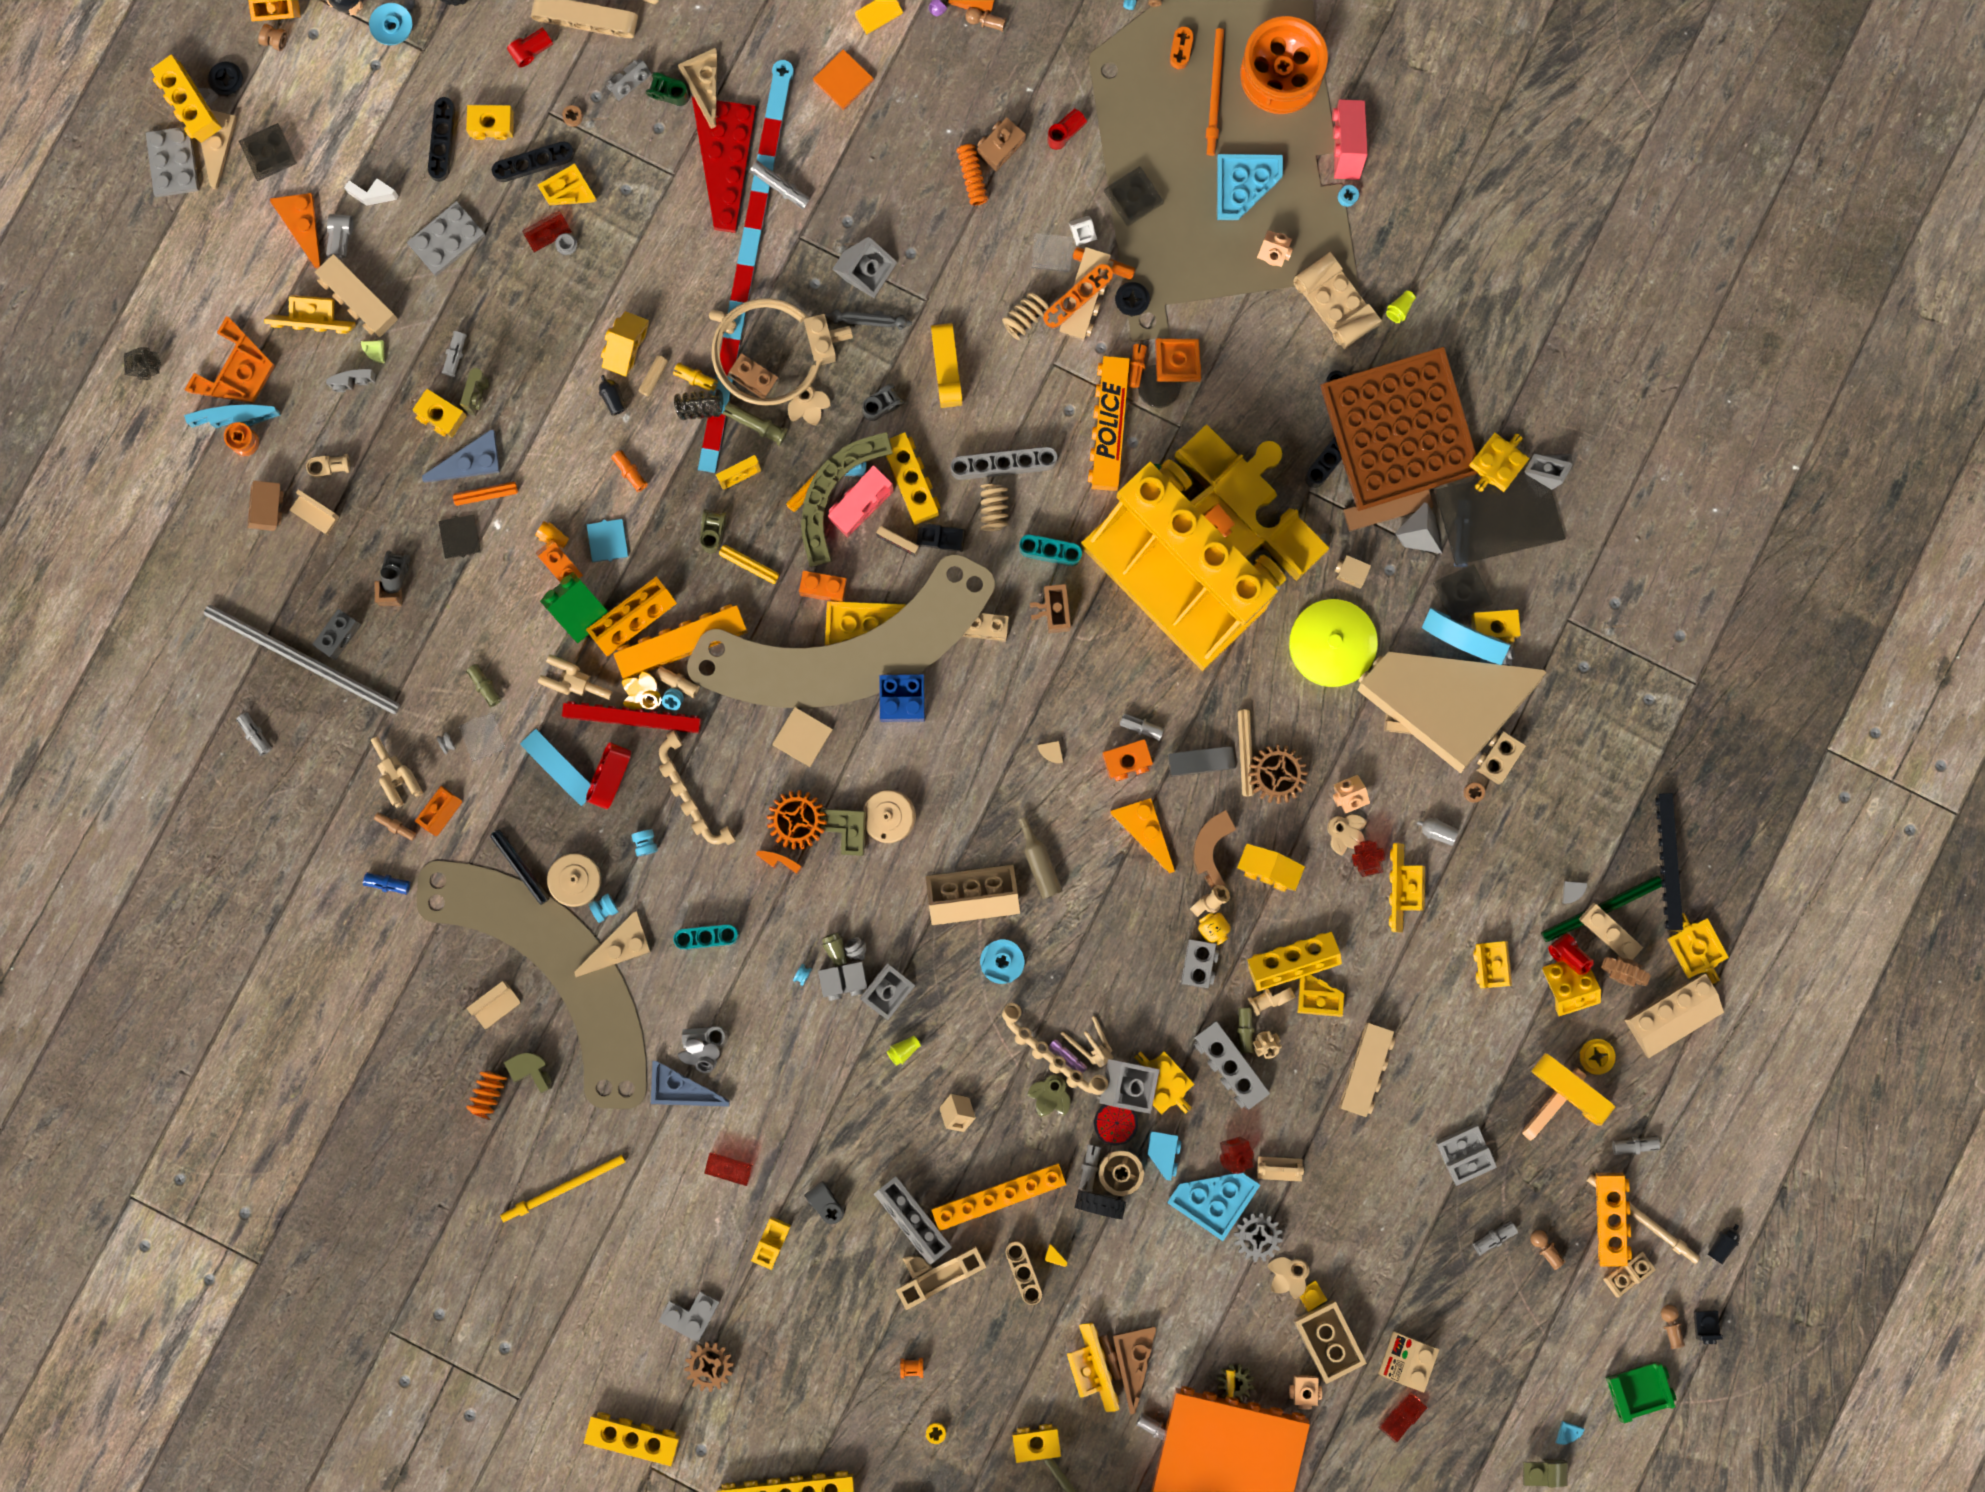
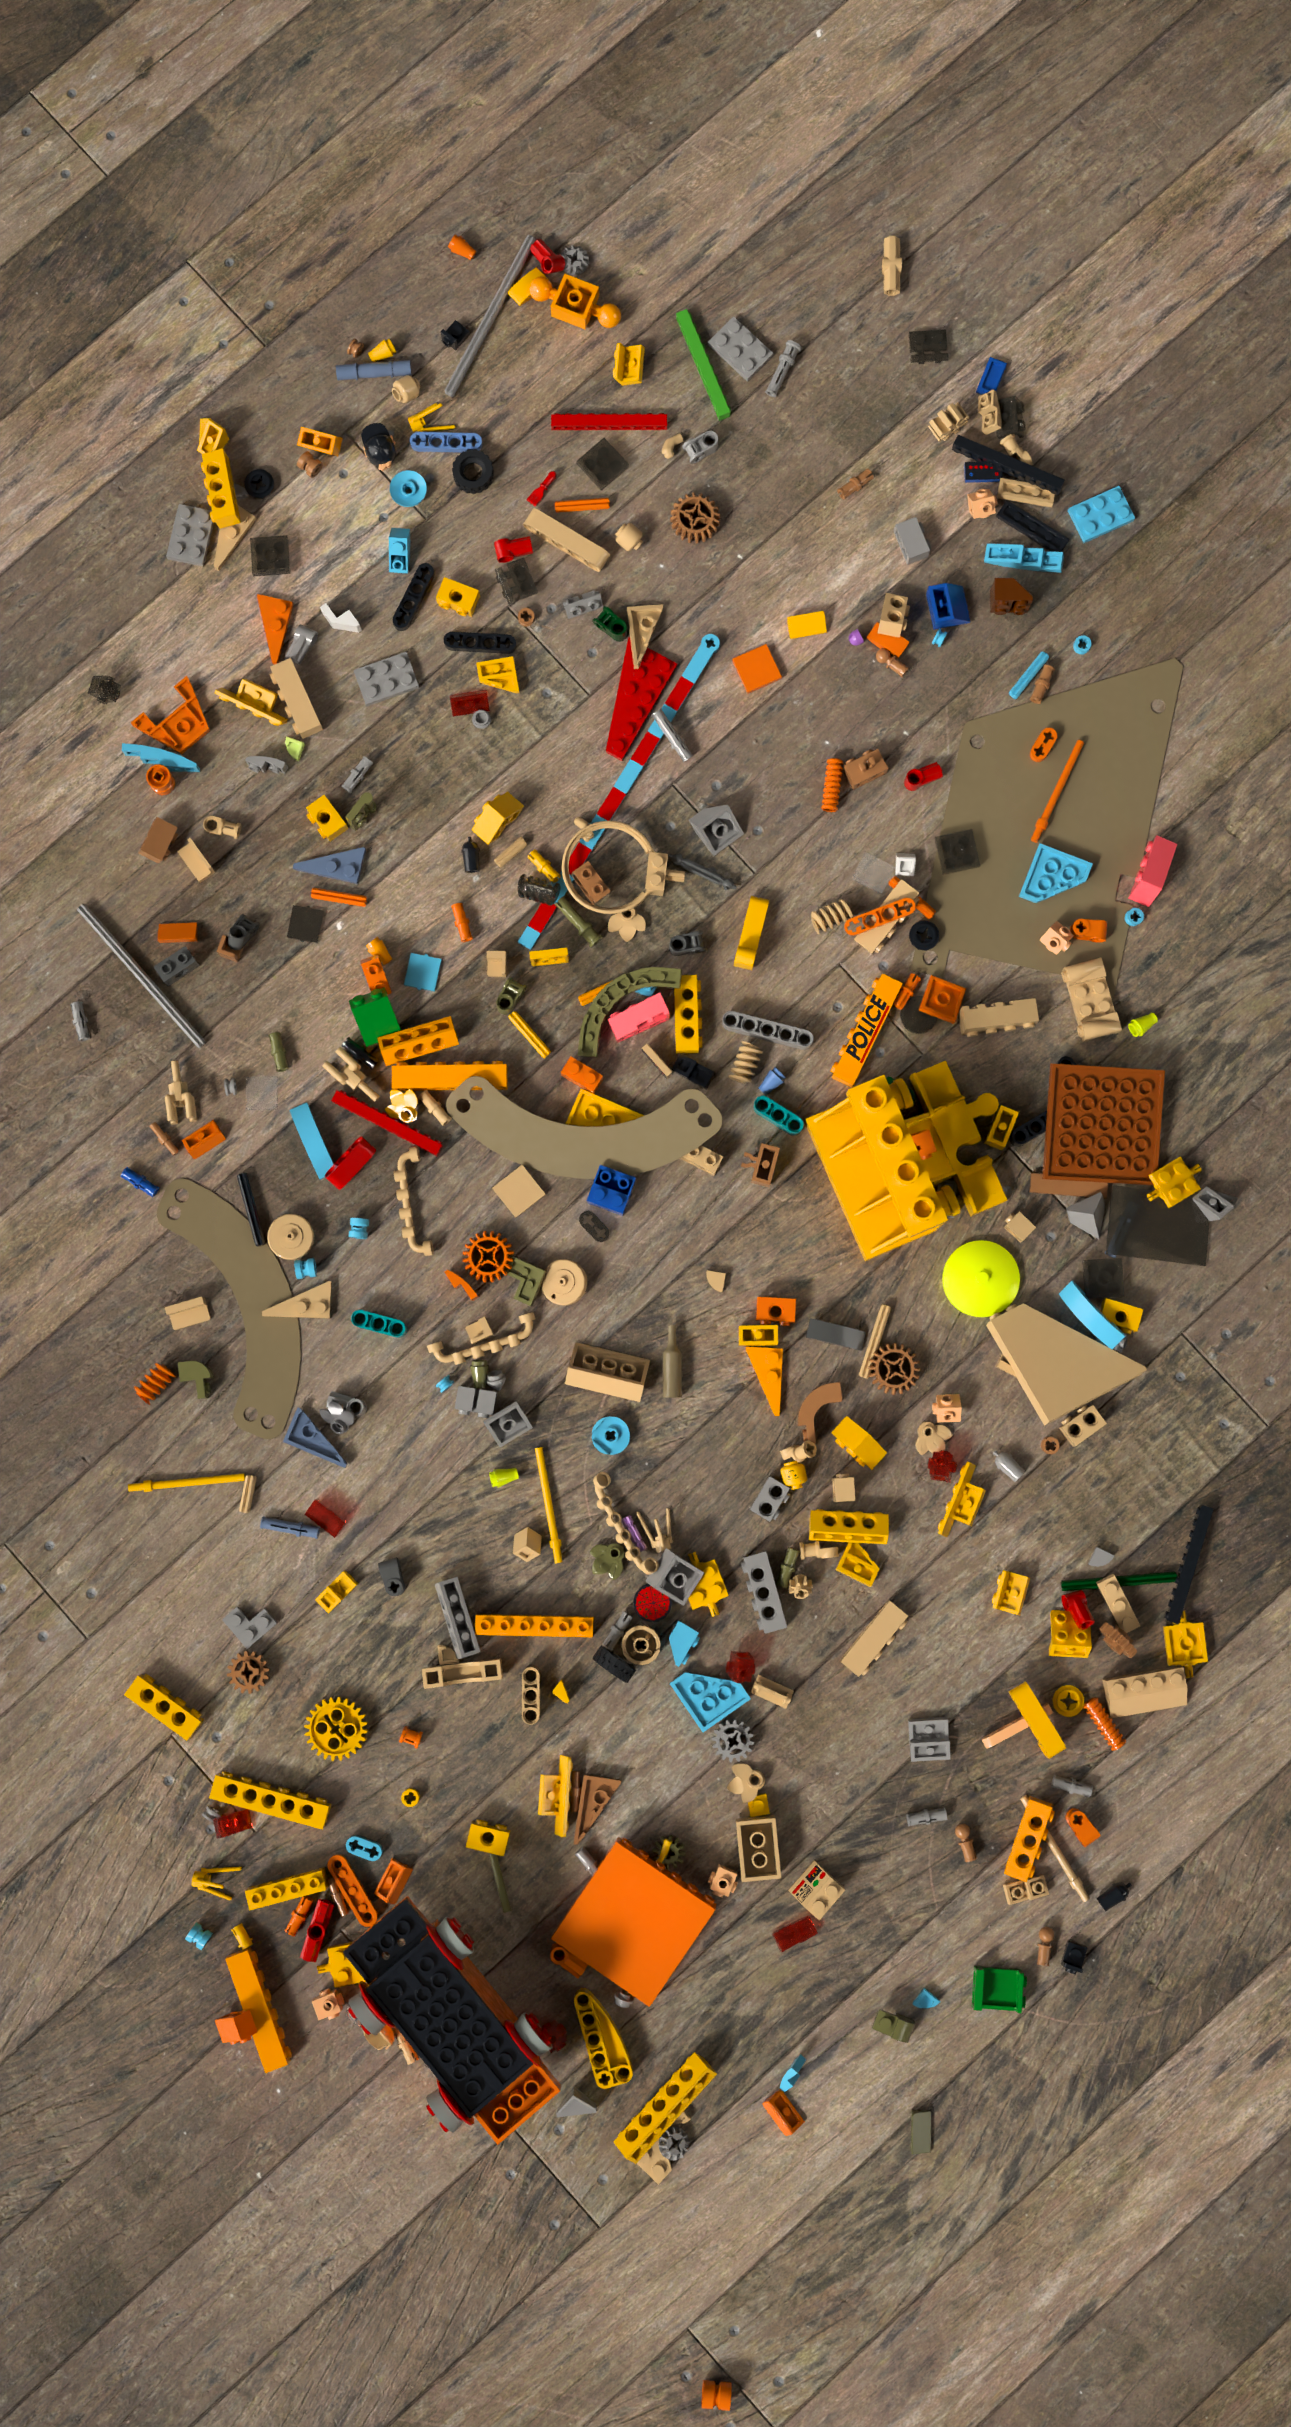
camera: 25 degrees right, 0 degrees up
(153, 45) = (211, 436): none -> yellow slope
(324, 598) = (177, 932): none -> orange slope
(406, 94) = (399, 550): none -> medium azure slope
(551, 75) = (522, 580): none -> clear smoke plate
(573, 653) = (360, 1053): none -> black pin
(634, 1175) = (247, 1494): none -> tan axle
(672, 1197) = (299, 1528): none -> sand blue pin
(677, 697) = (425, 1120): medium azure bush -> none
(684, 501) = (497, 963): none -> tan panel
(817, 903) = (479, 1330): none -> tan panel
(817, 1409) = (350, 1716): none -> yellow gear
(839, 913) = (494, 1346): none -> tan bar
(895, 749) = (597, 1223): none -> clear smoke beam
(986, 1099) = (555, 1542): none -> yellow bar
(1029, 515) = (772, 1080): none -> medium blue cone
(1119, 793) = (758, 1335): none -> yellow brick
(1141, 726) = (797, 1287): light grey axle -> none
(1244, 356) = (998, 1017): none -> tan wedge
(1273, 922) = (843, 1488): none -> tan brick
(1293, 473) = (1001, 1127): none -> yellow brick
(1296, 37) = (1140, 771): orange wheel -> none
(1309, 226) = (1092, 930): none -> orange piece
(1645, 1066) = (1104, 1724): none -> orange piece
(1666, 1186) = (1083, 1829): none -> orange piece

